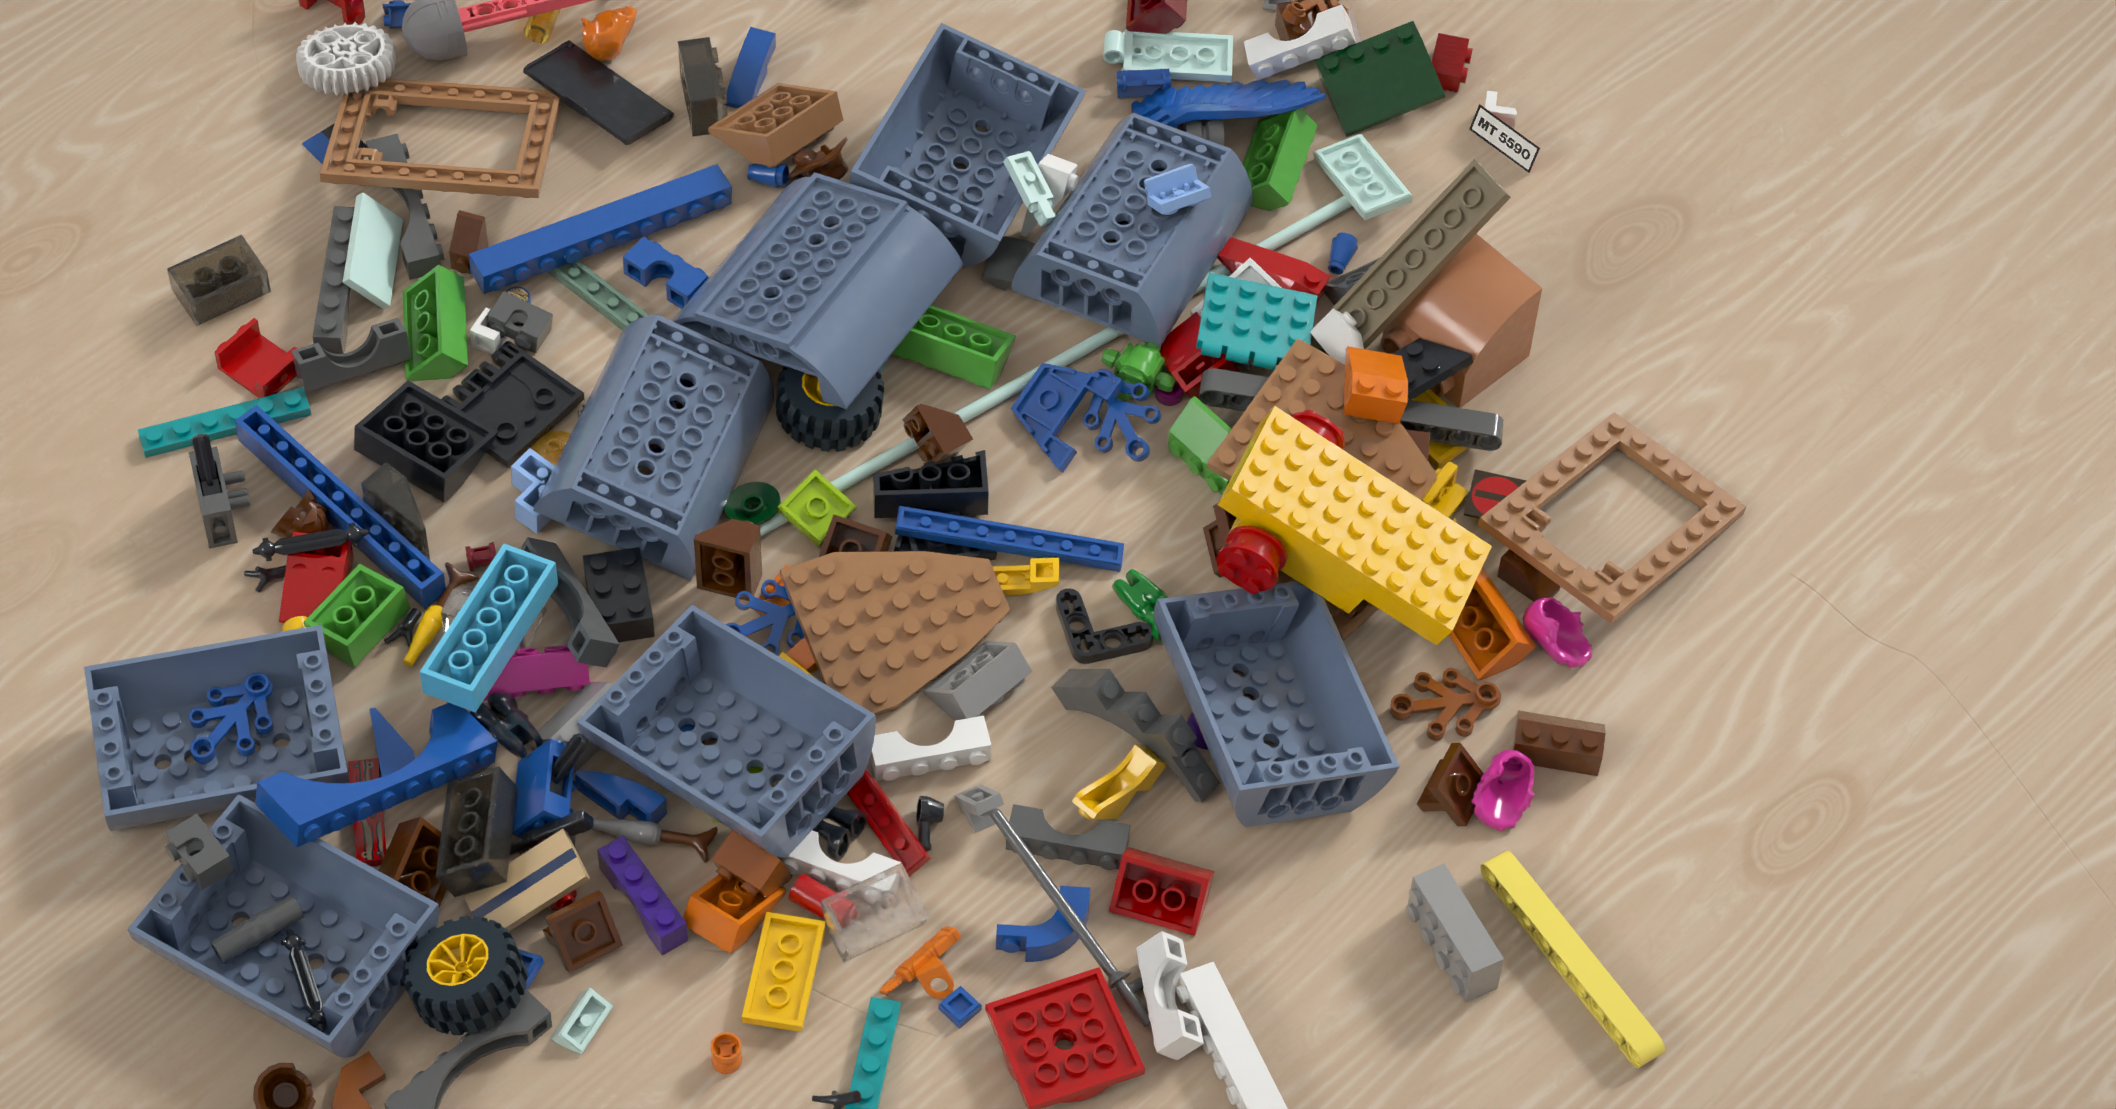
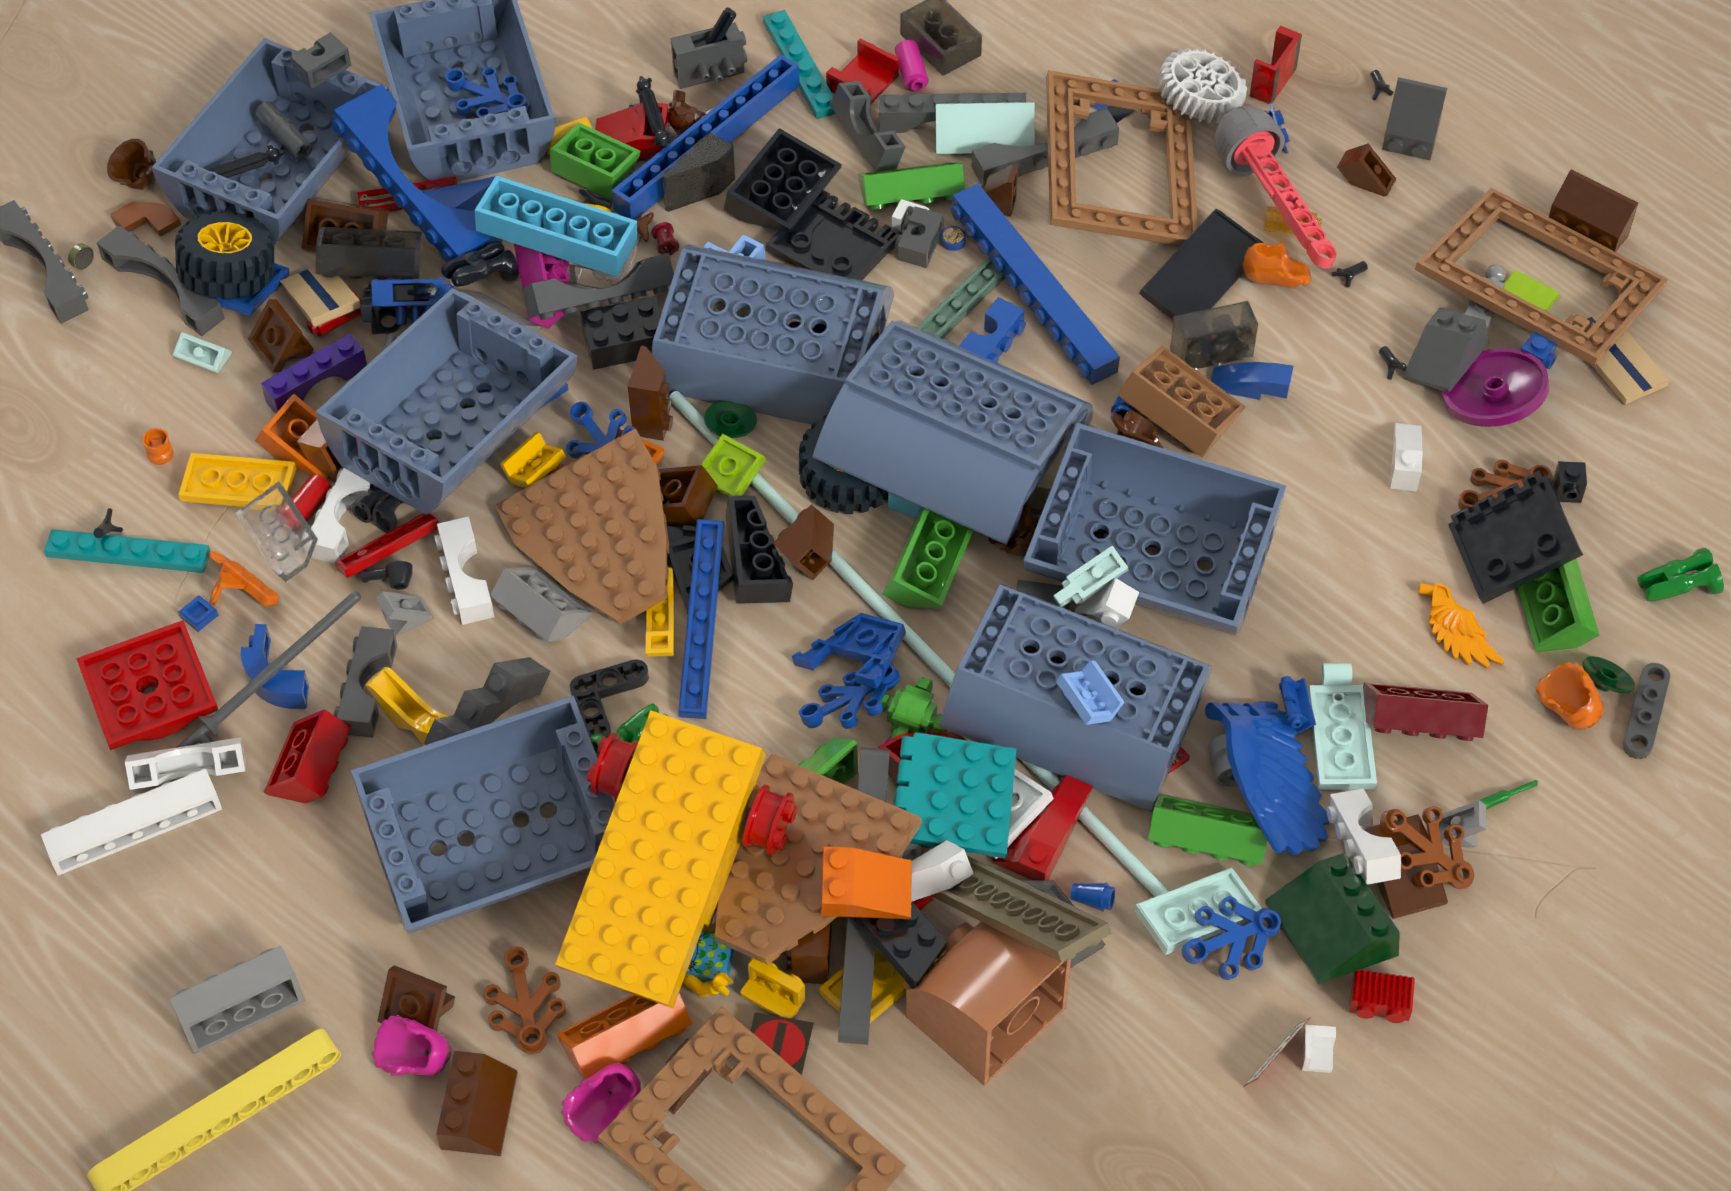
camera: 90 degrees right, 0 degrees up
(267, 312) = (911, 65): none -> dark pink brick
(1376, 132) = (1234, 934): none -> blue plant

